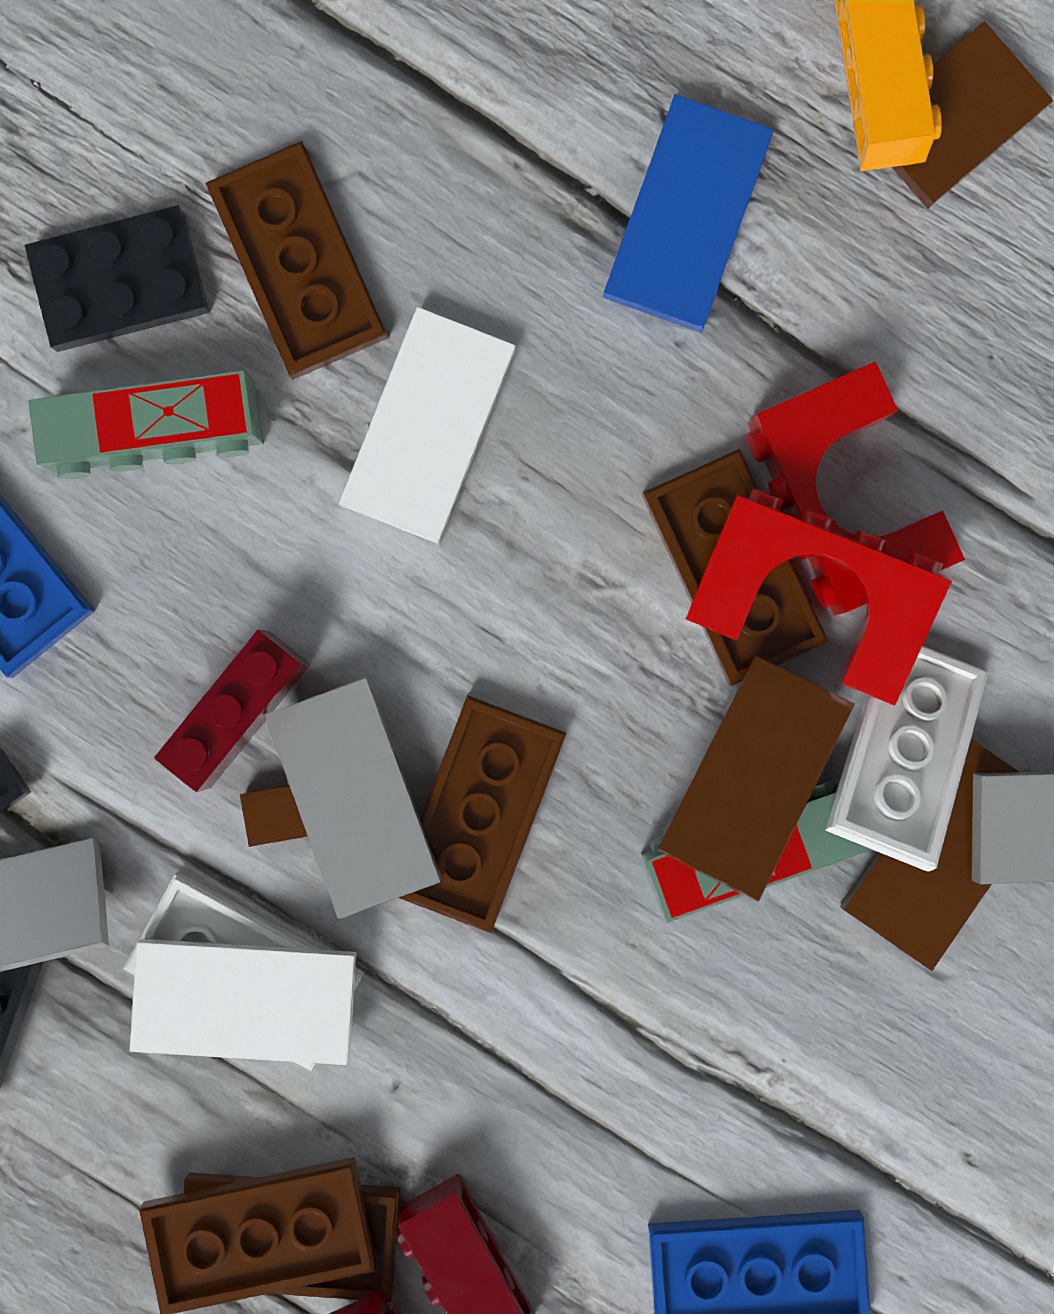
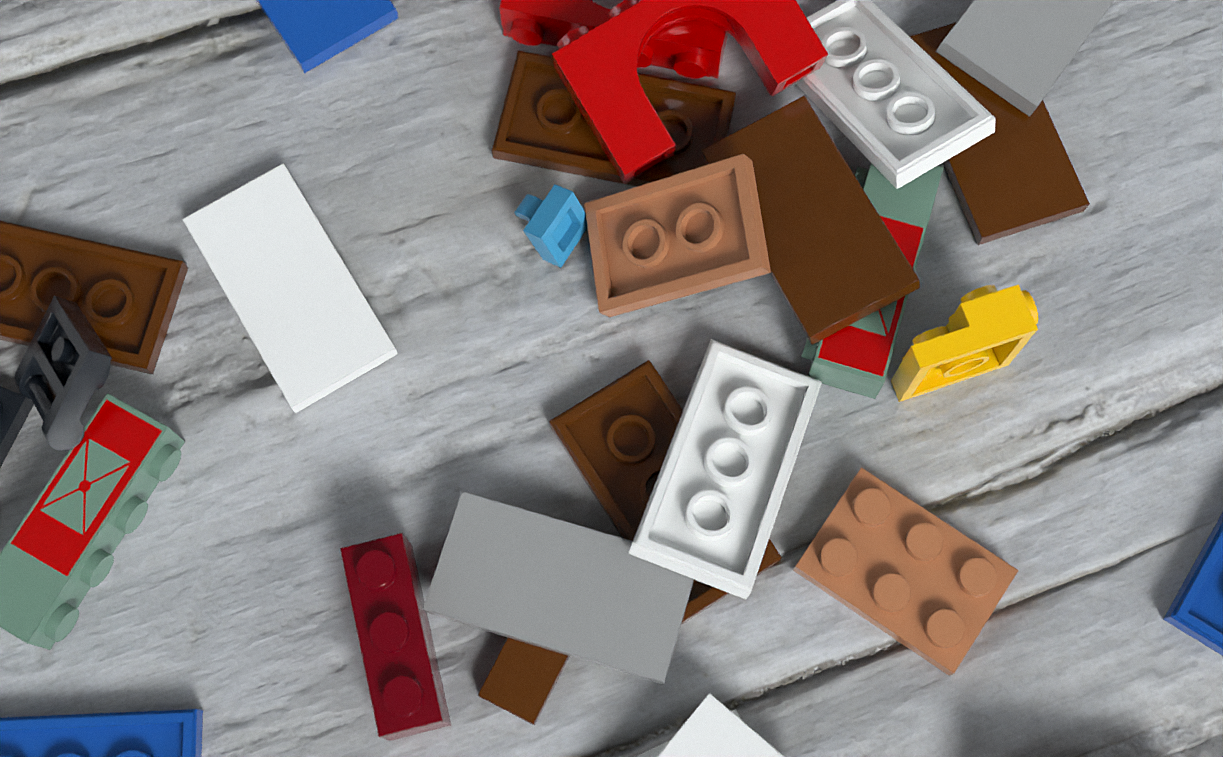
camera: 50 degrees left, 15 degrees down
(234, 325) = (63, 372): none -> black plate
(524, 851) = (726, 469): none -> white tile
(547, 1024) = (906, 571): none -> nougat plate
(617, 586) = (553, 223): none -> dark azure tile
(670, 689) = (677, 236): none -> nougat plate
(749, 963) = (978, 338): none -> yellow plate

